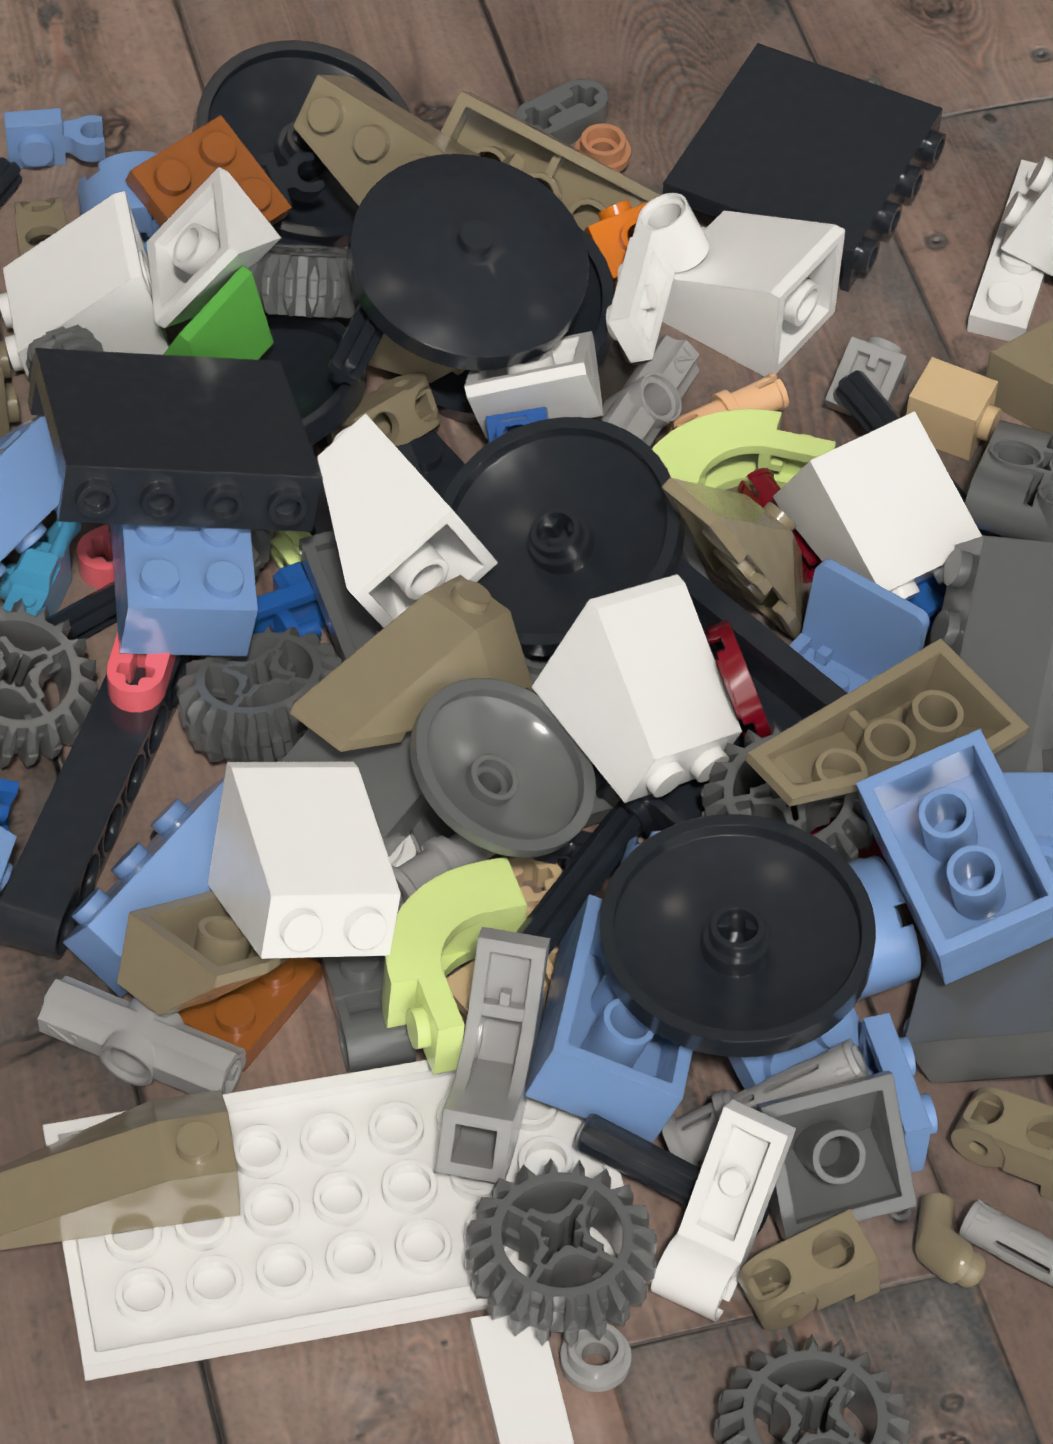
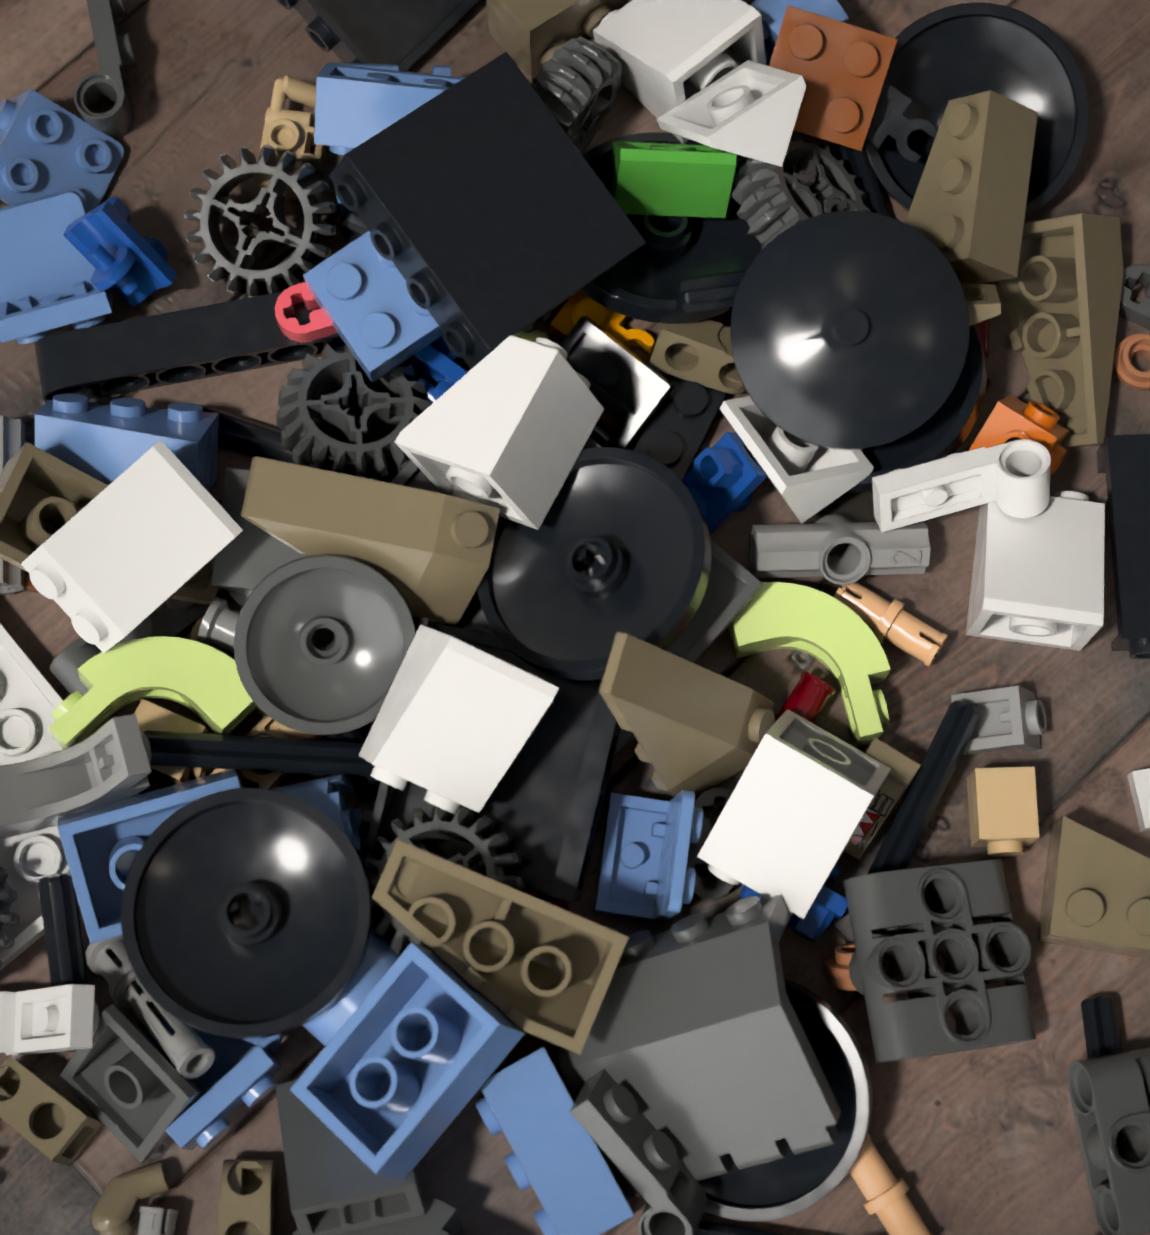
camera: 65 degrees right, 25 degrees up
(737, 678) = (525, 791): dark red tile -> none

